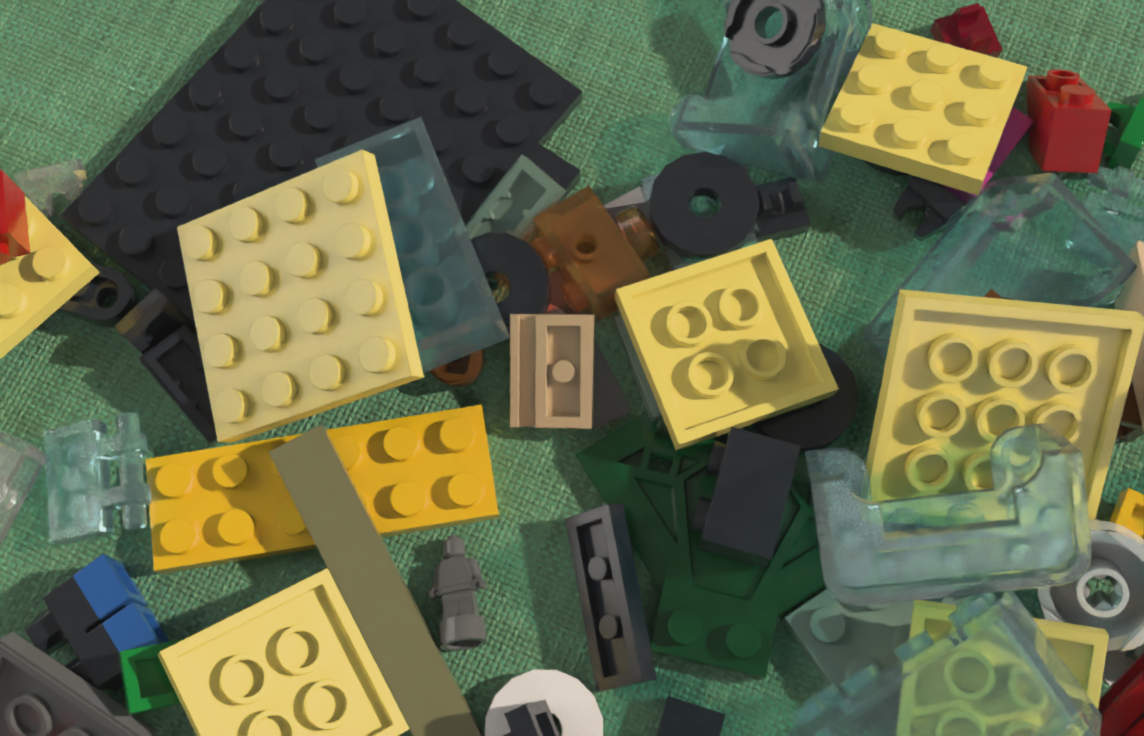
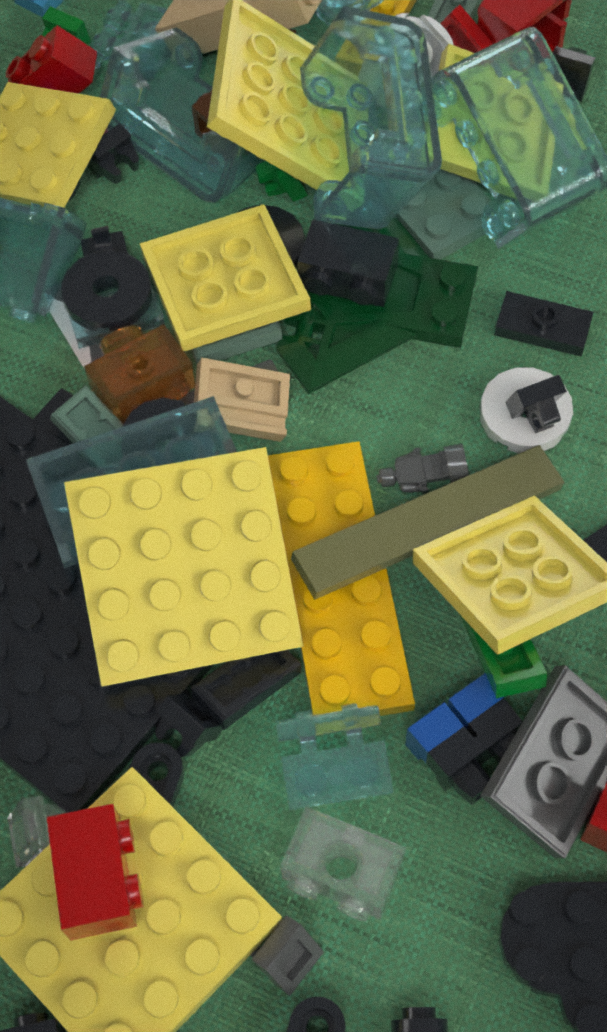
camera: 90 degrees left, 10 degrees down
(610, 598) = (424, 361): black plate -> none

